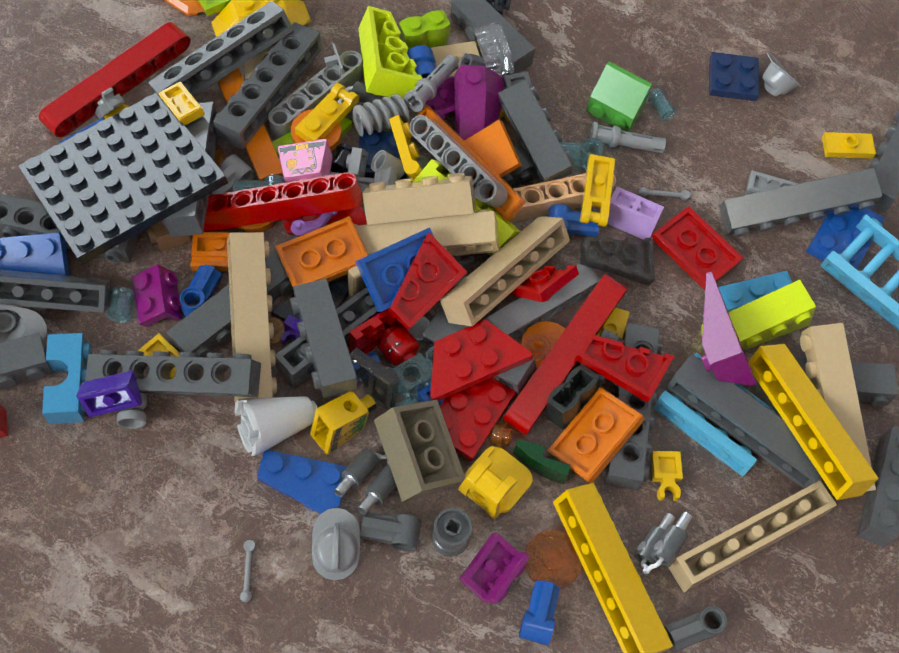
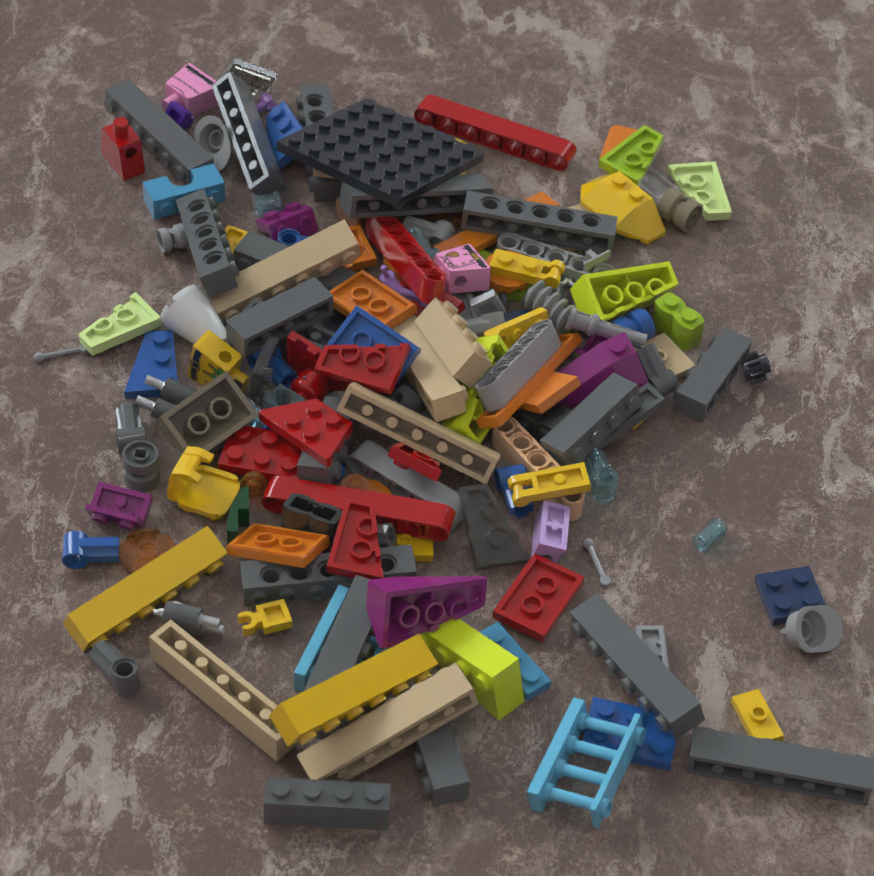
camera: 75 degrees right, 15 degrees down
(108, 103) = (460, 130): light grey plate -> none
(109, 394) = (173, 211): dark purple slope -> none
(181, 103) = (476, 166): yellow plate -> none
(227, 51) = (550, 182): dark grey brick -> none
(237, 496) = (124, 324): none -> yellowish green wing
(335, 544) = (101, 396): light grey piece -> none
(494, 47) = (674, 364): clear hinge -> none
(615, 136) = (641, 501): light grey pin -> none
(619, 97) = (681, 488): slope -> none

